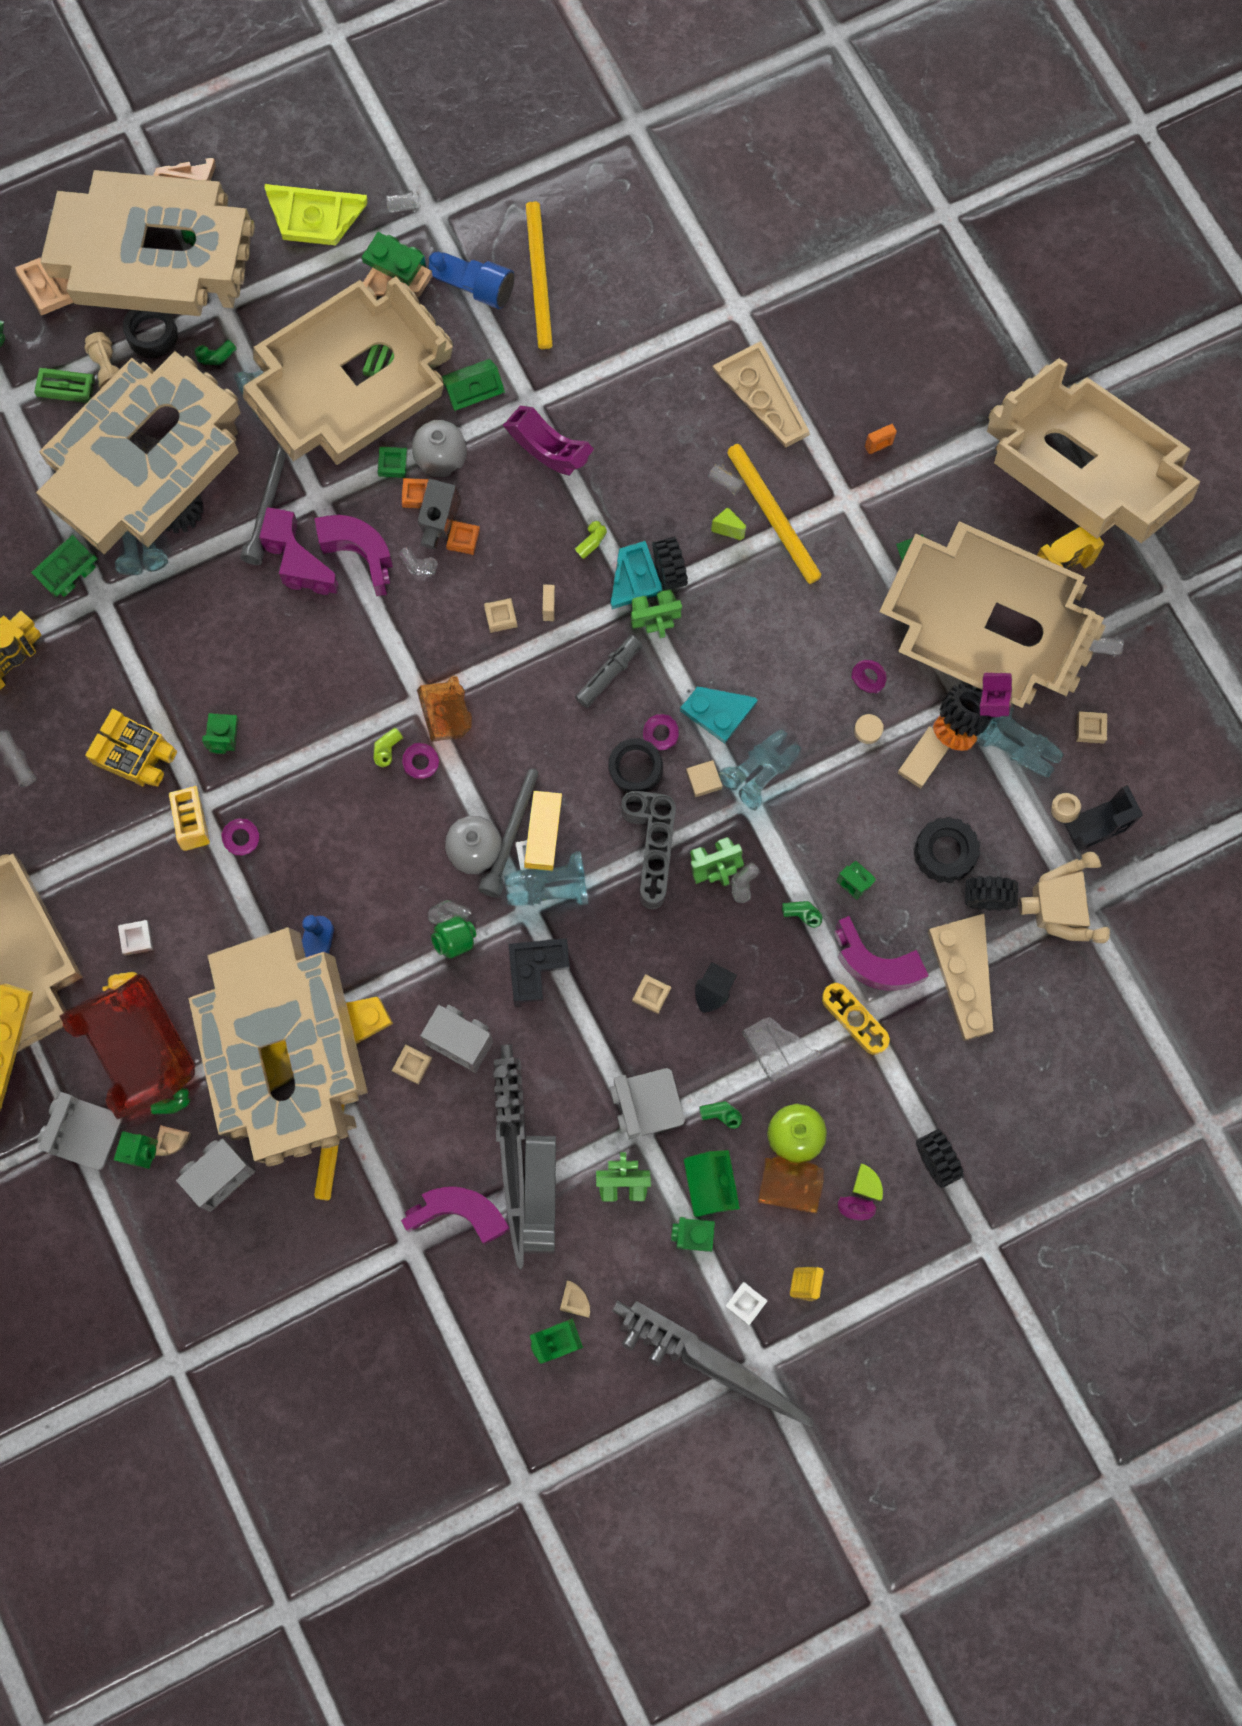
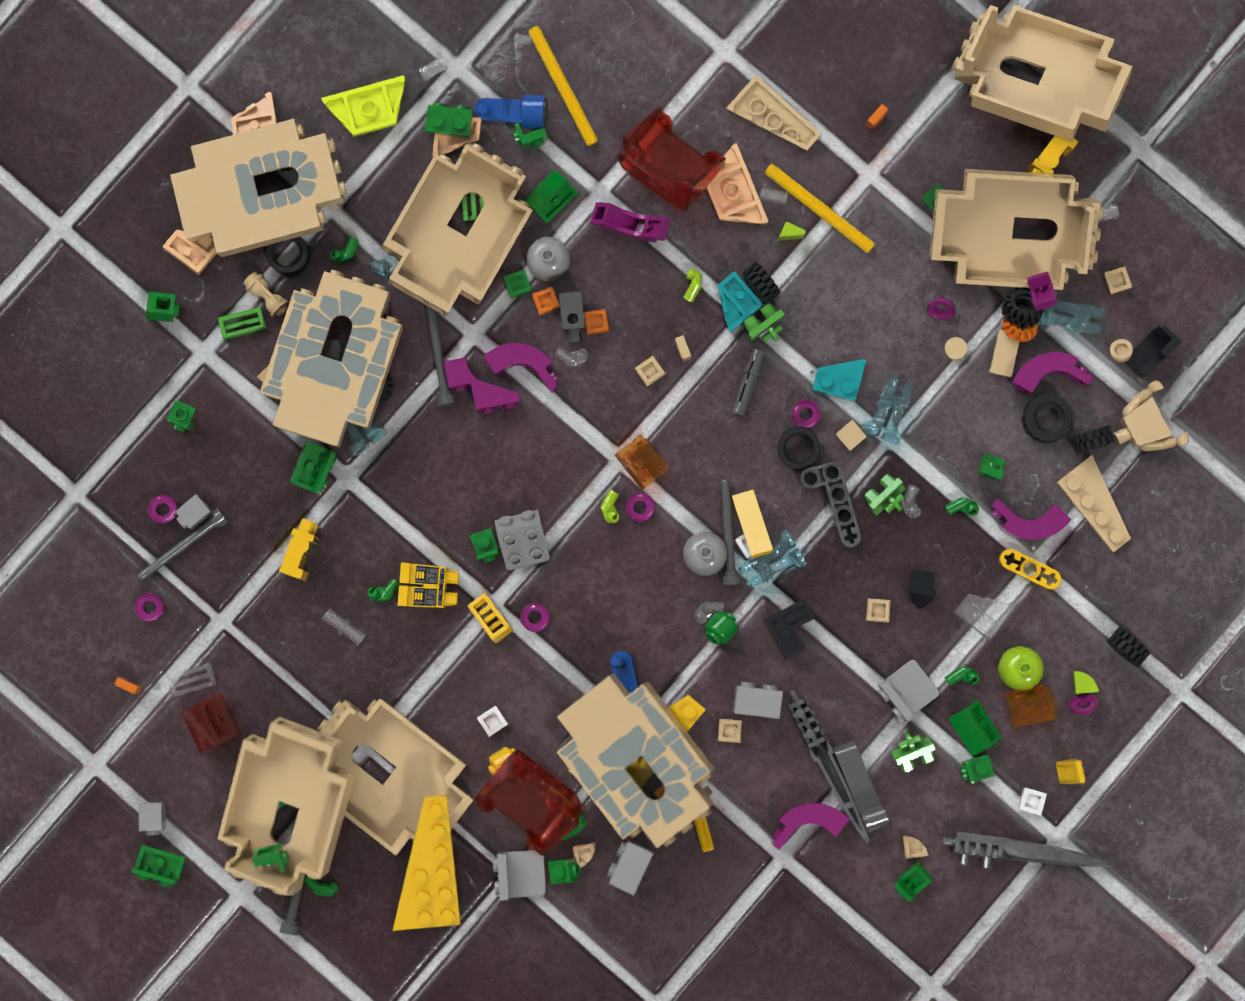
camera: 20 degrees left, 10 degrees up
(76, 739) = (383, 593): none -> green arm
(265, 743) = (522, 539): none -> light grey bracket
(477, 314) = (535, 139): none -> green bracket
(617, 394) = (667, 162): none -> clear red windscreen
(682, 456) = (735, 193): none -> light nougat wing
(972, 788) = (1053, 362): none -> magenta arch

